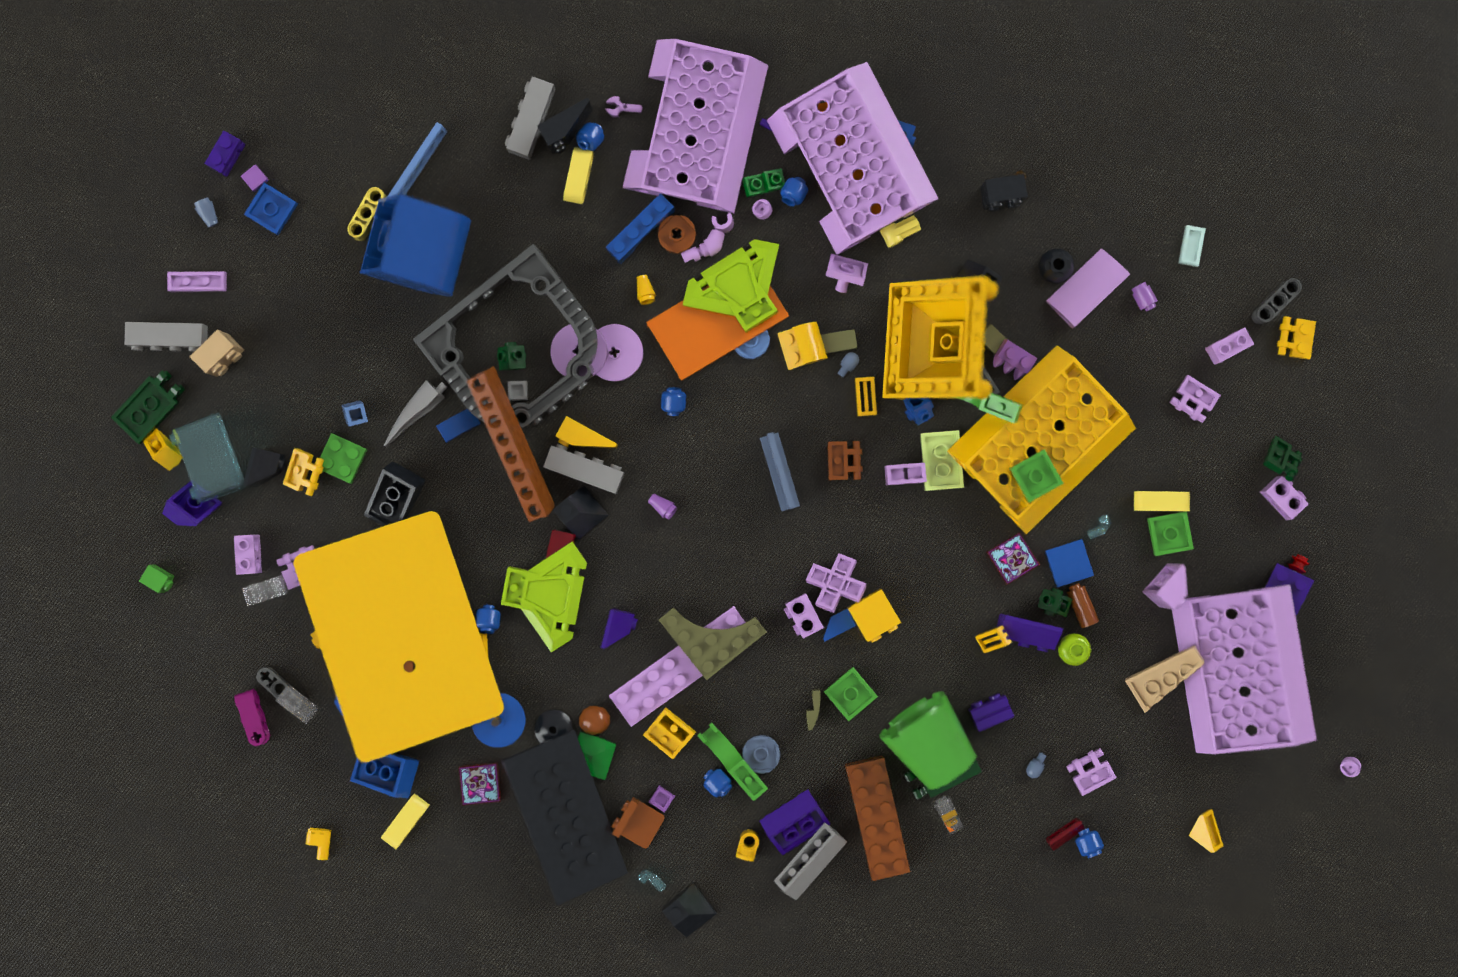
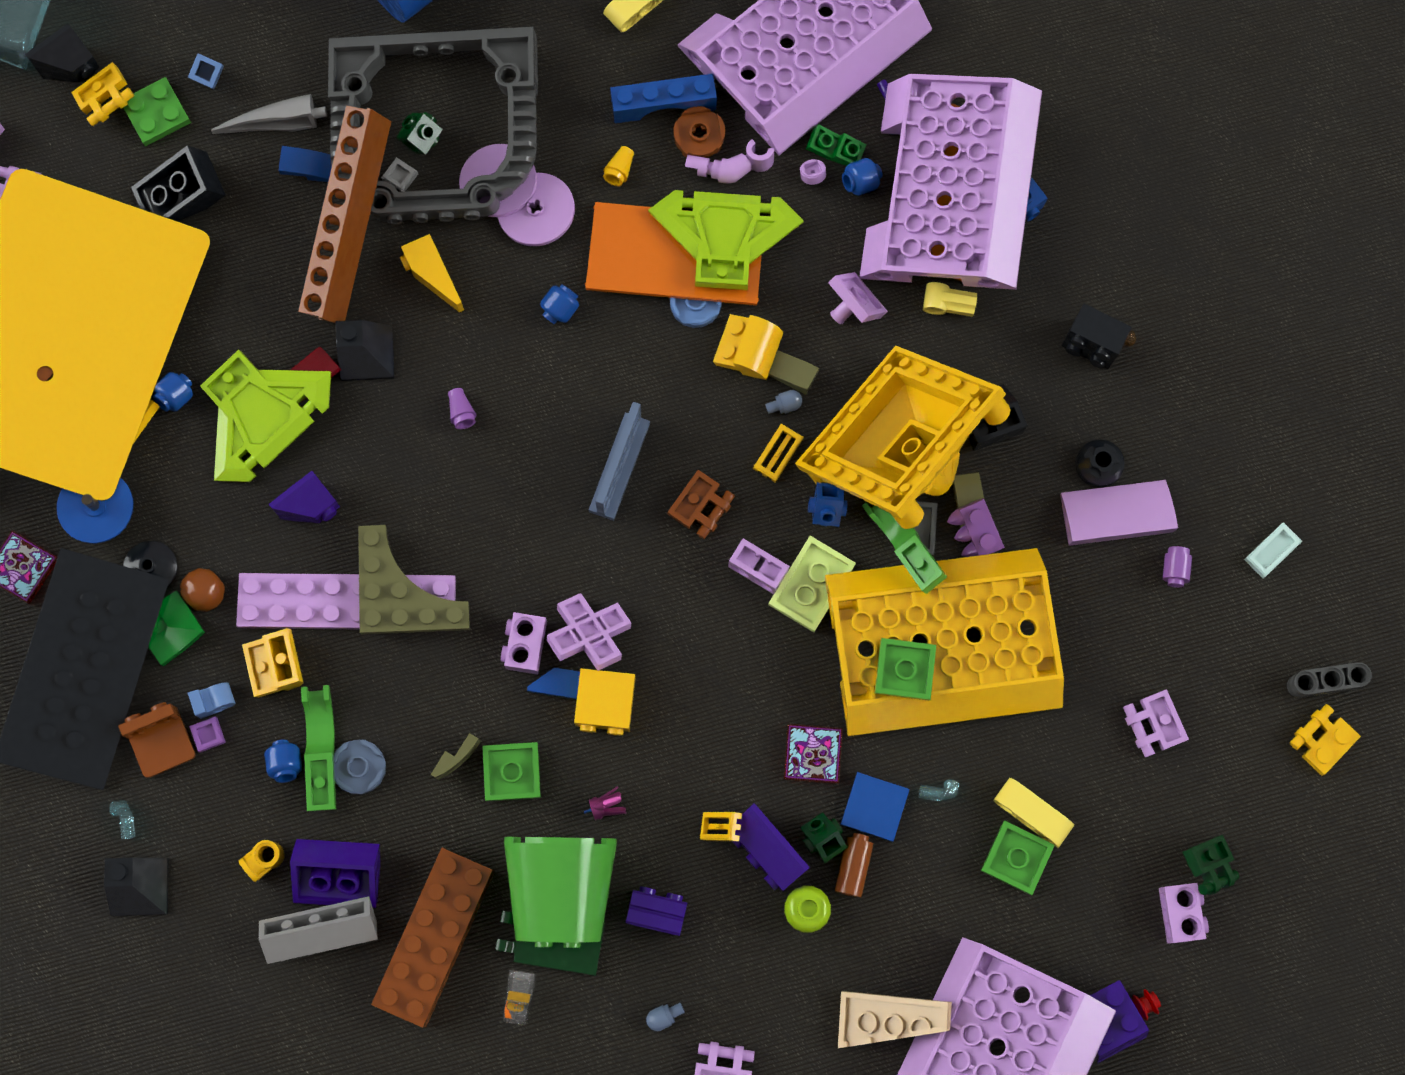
camera: 30 degrees right, 10 degrees down
(583, 469) = (405, 307): light grey brick -> none
(649, 778) = (211, 700): none -> medium blue leg
(916, 675) = (601, 805): none -> flat silver piece
(1168, 587) = (966, 914): lavender slope -> none
(1229, 346) = (1238, 690): lavender brick -> none

